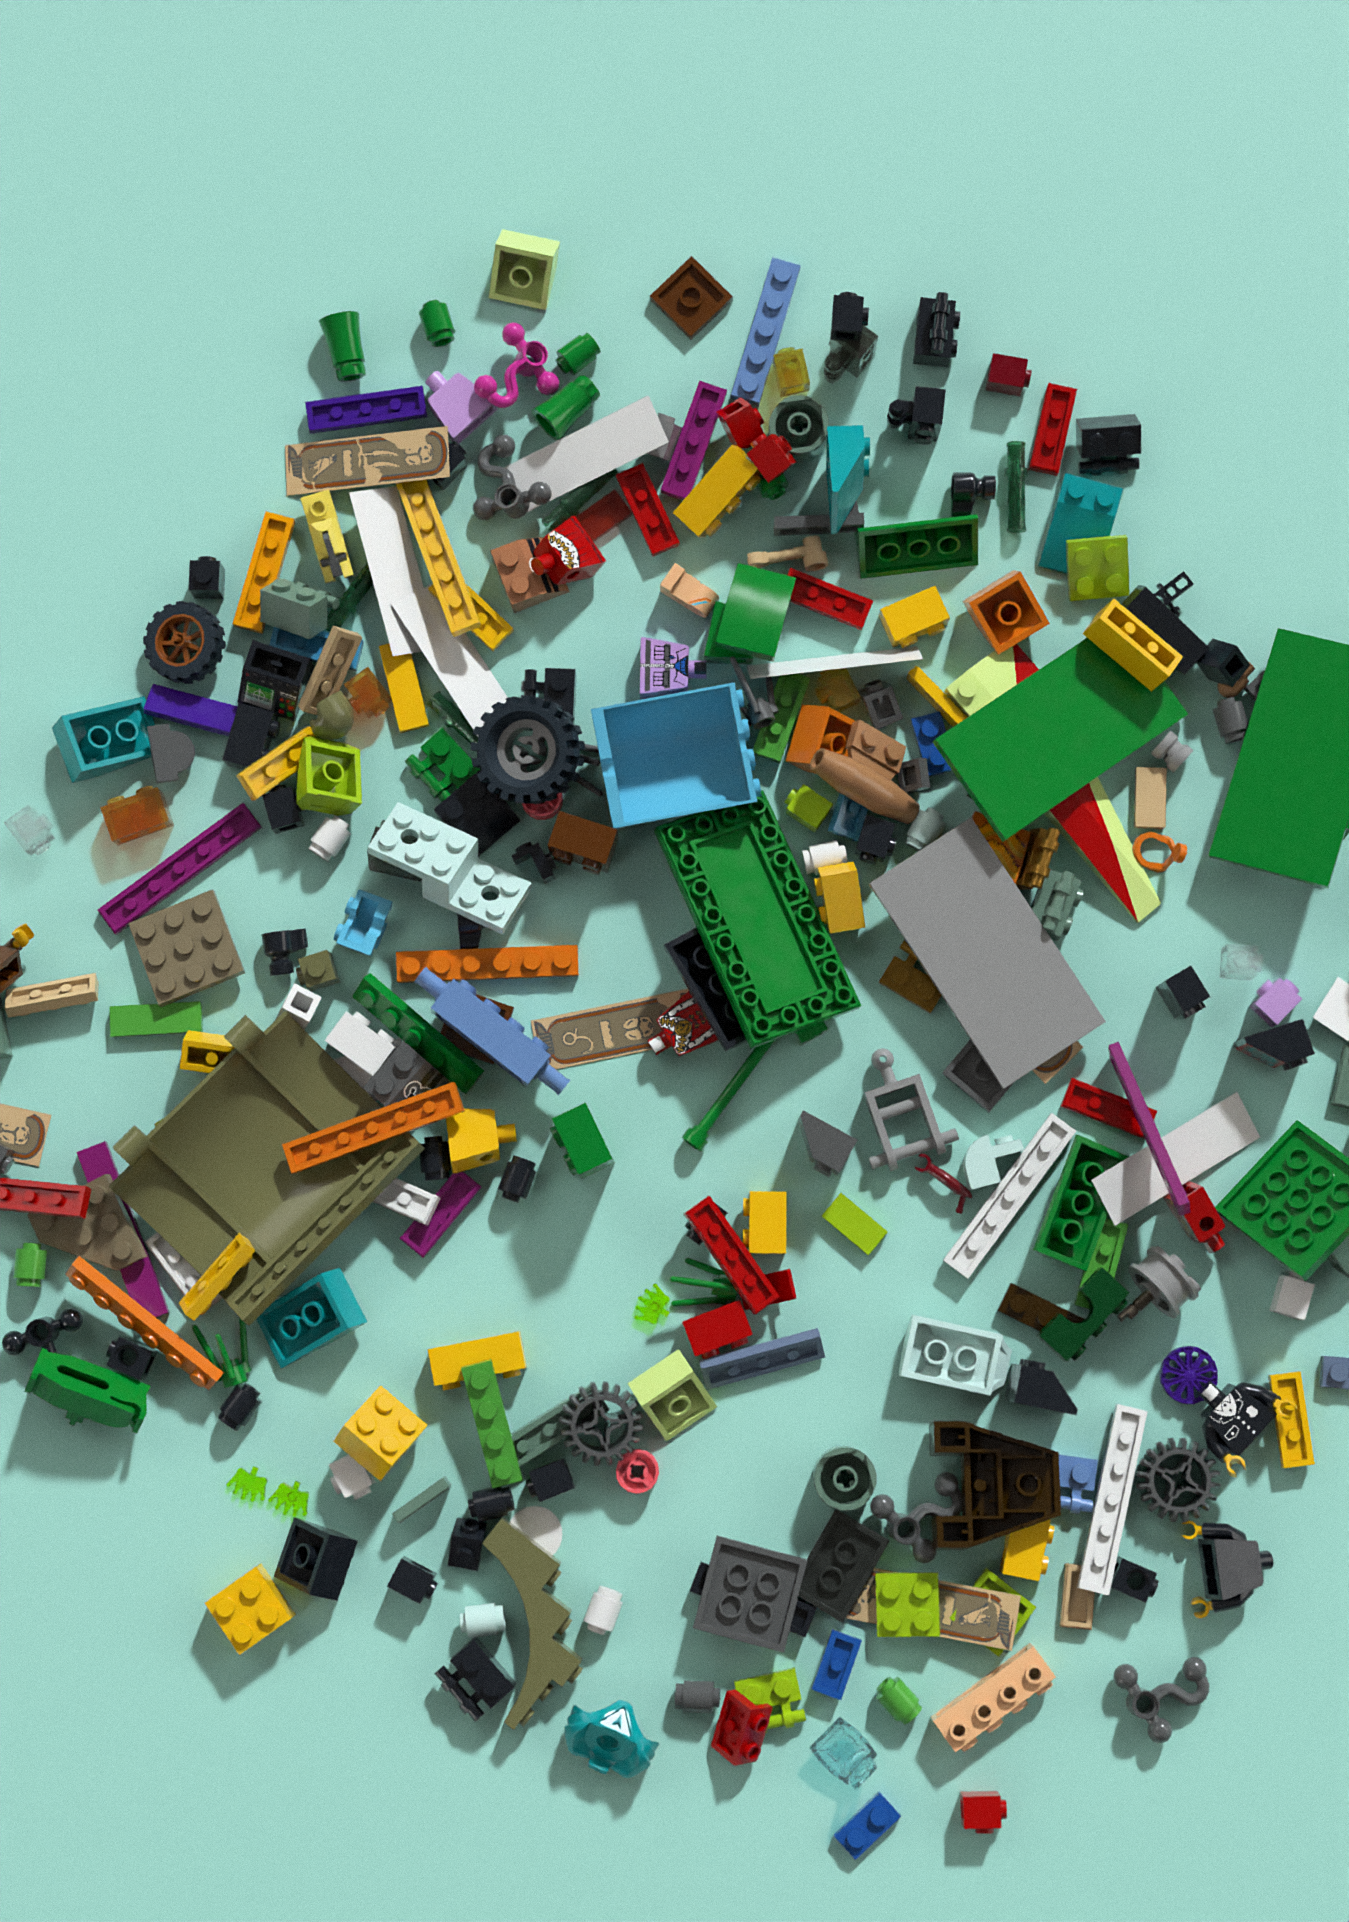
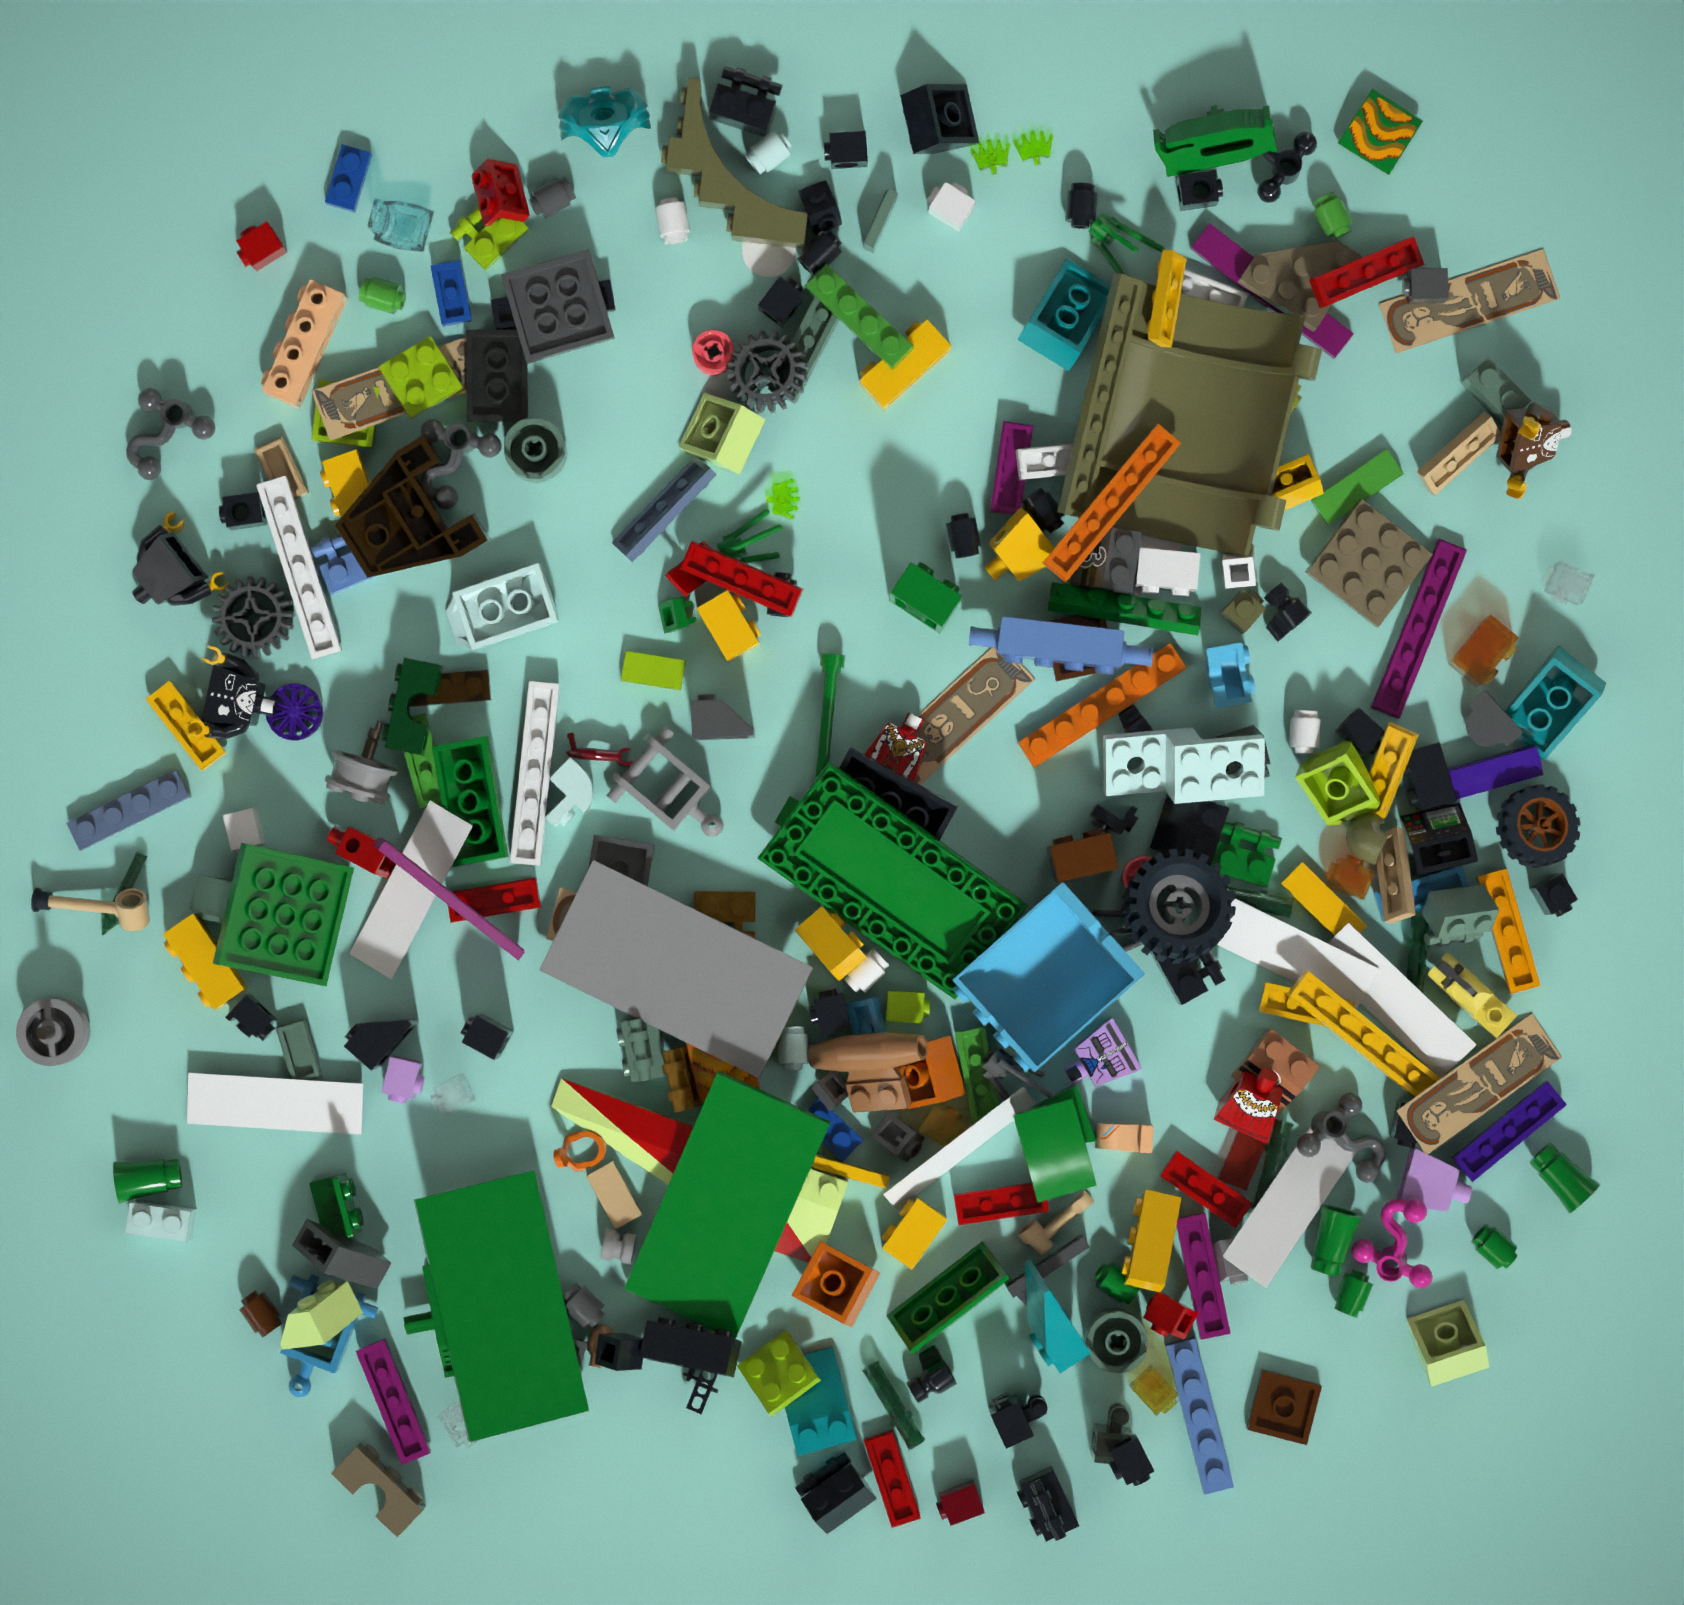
camera: 145 degrees right, 5 degrees up
(135, 1317) = (1193, 222): orange plate -> none
(250, 1609) = (968, 45): yellow brick -> none
(380, 1433) = (948, 252): yellow brick -> none
(718, 1328) = (716, 511): red brick -> none
(771, 455) = (1124, 1297): red brick -> none
(808, 1260) = (674, 615): none -> green tile
(1037, 1387) = (416, 617): black slope -> none
(1132, 645) = (707, 1316): yellow brick -> none

